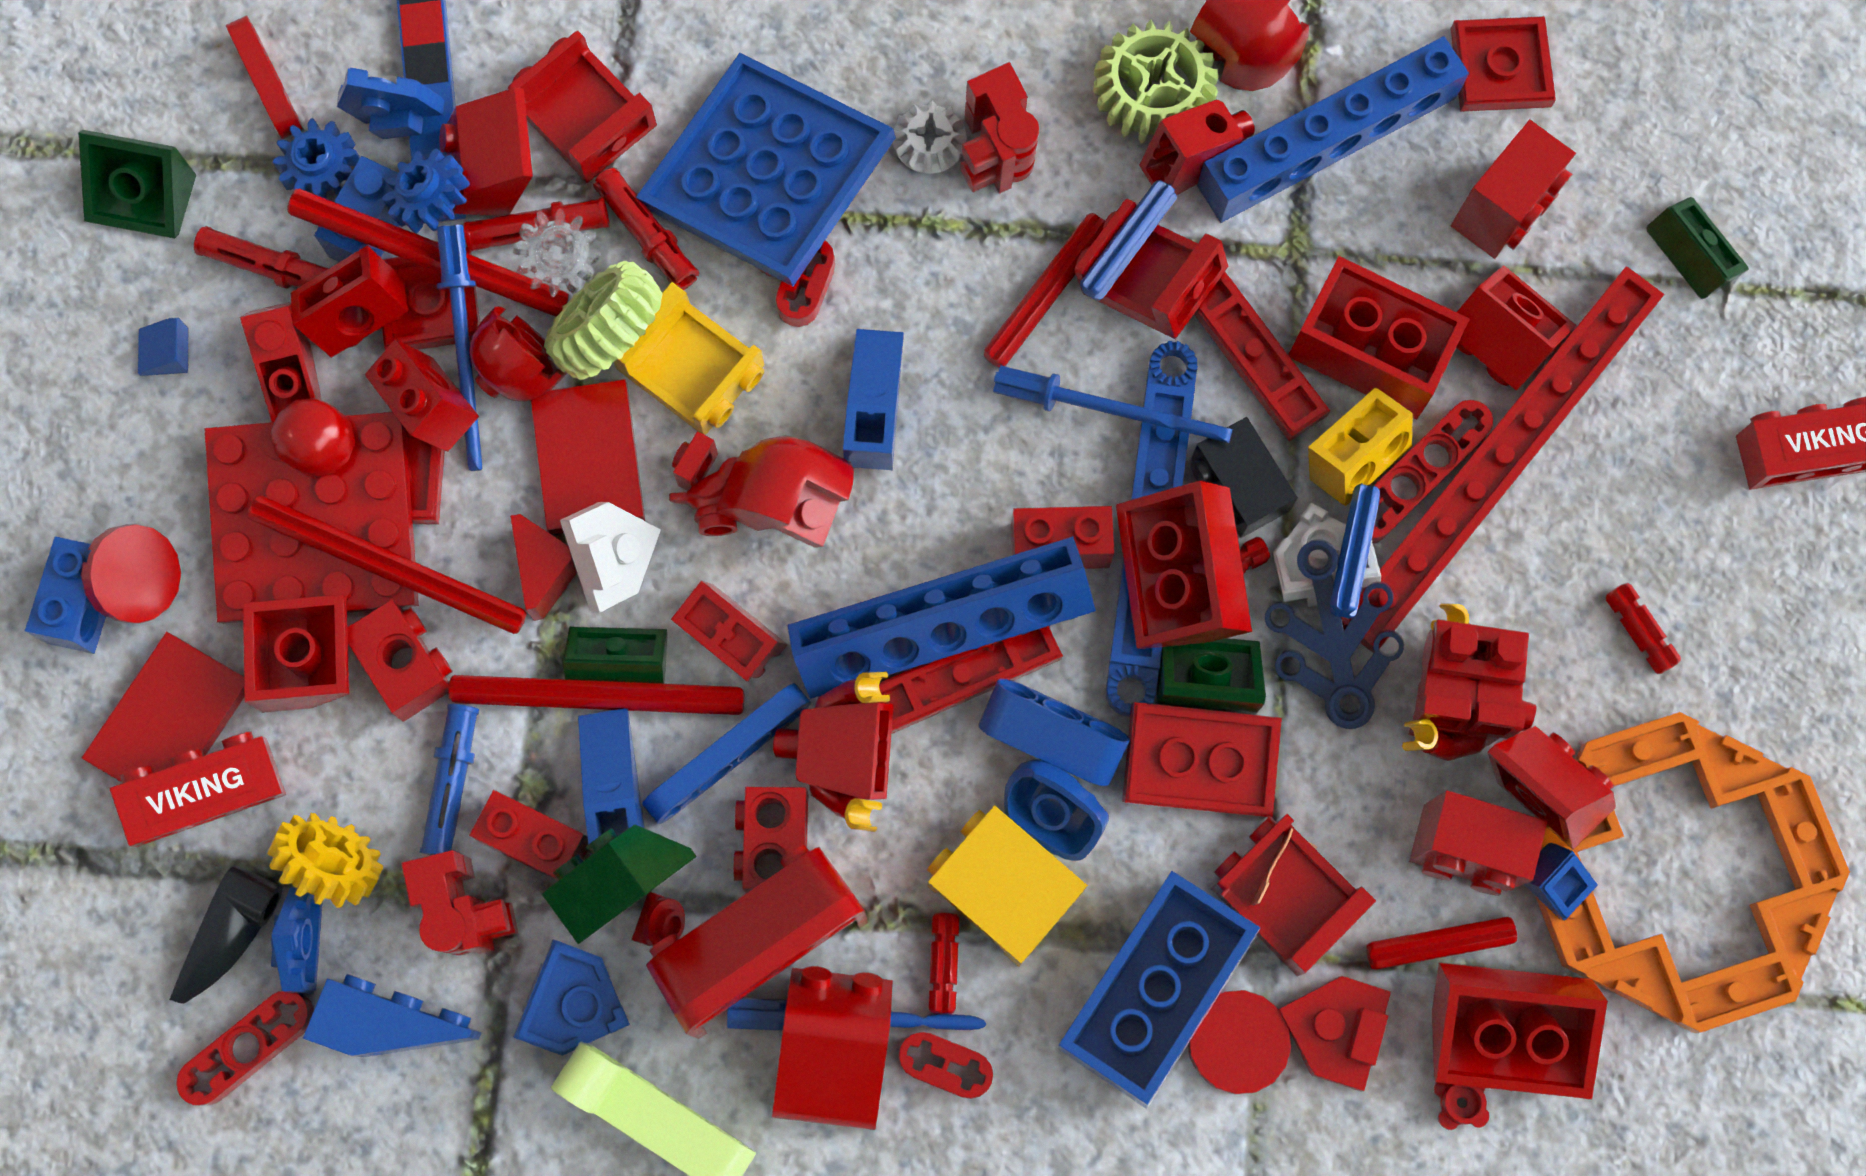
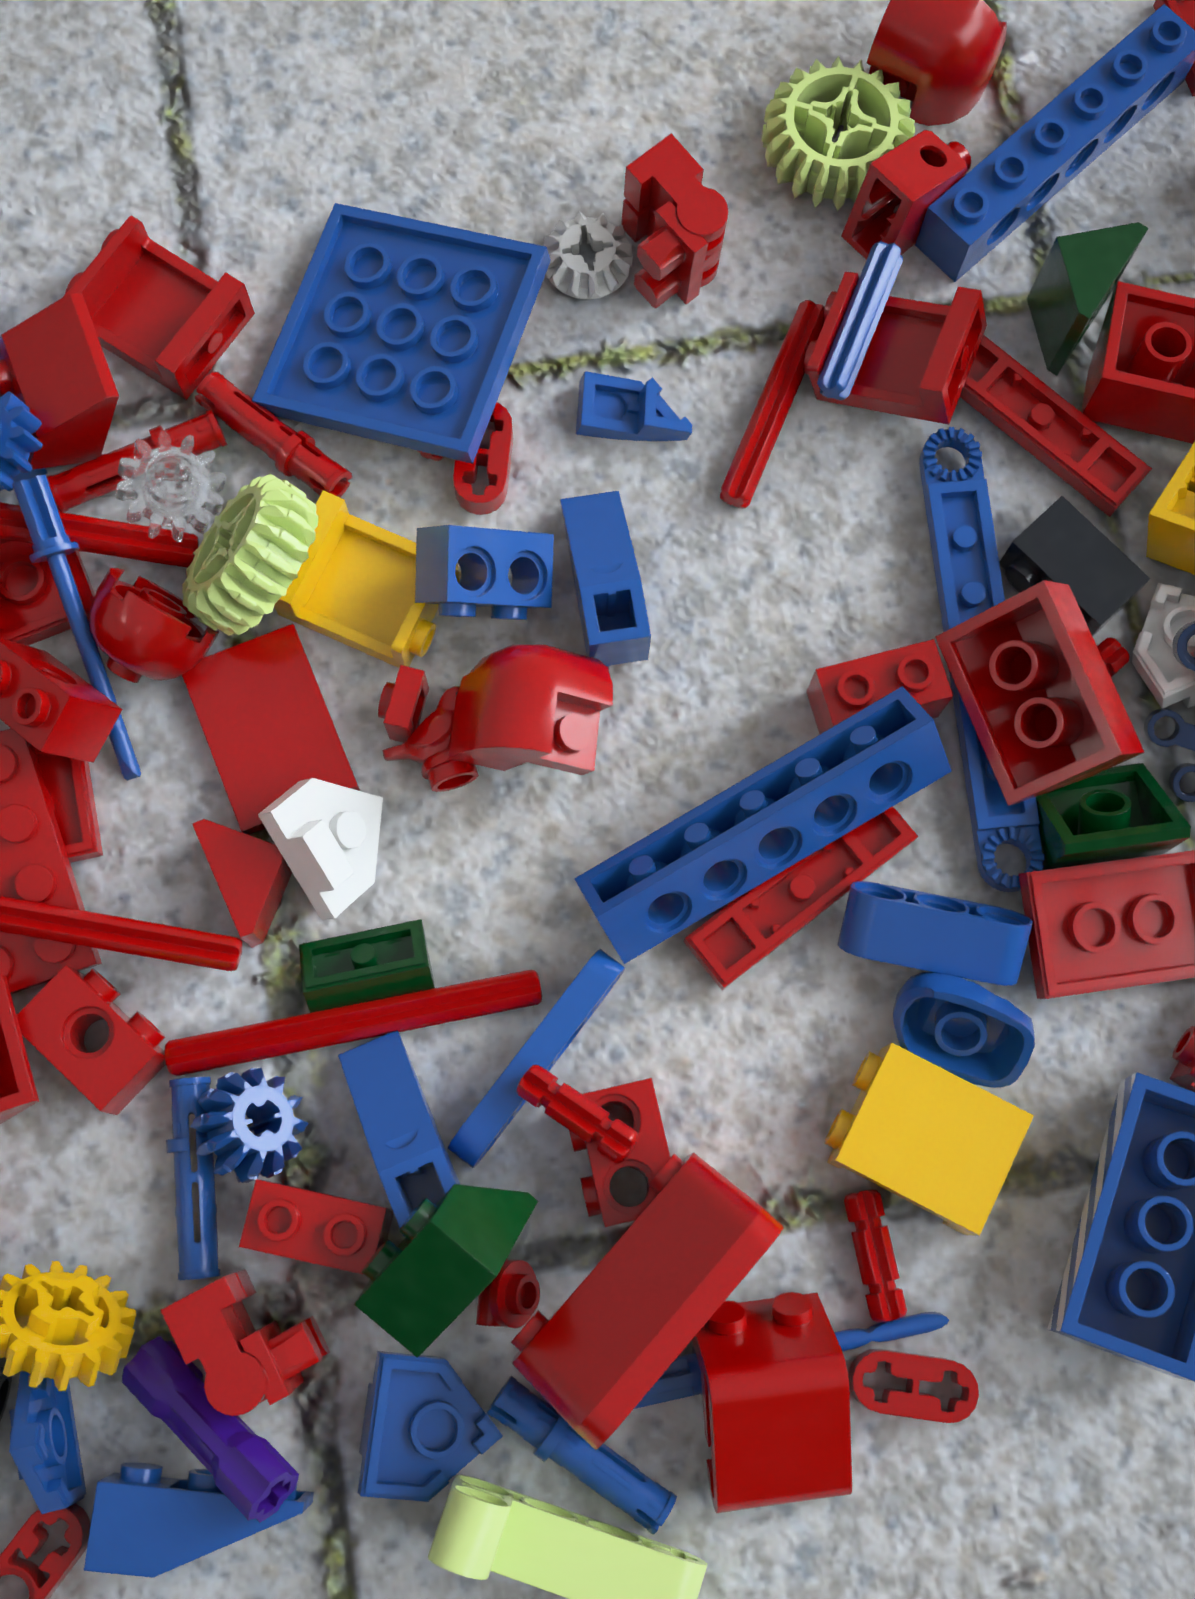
camera: 15 degrees left, 0 degrees up
(431, 986) = (241, 1462): none -> dark purple axle
(482, 754) = (228, 1130): none -> blue gear
(683, 1052) = (598, 1469): none -> blue pin
(728, 631) = (500, 904): red hinge -> none
(742, 799) = (577, 1113): none -> red axle
(780, 368) = (484, 566): none -> blue brick
(844, 748) = (685, 1018): red torso -> none
(927, 269) = (626, 410): none -> blue slope
(1047, 391) = (807, 521): blue piece -> none
(1309, 252) = (1076, 285): none -> dark green slope

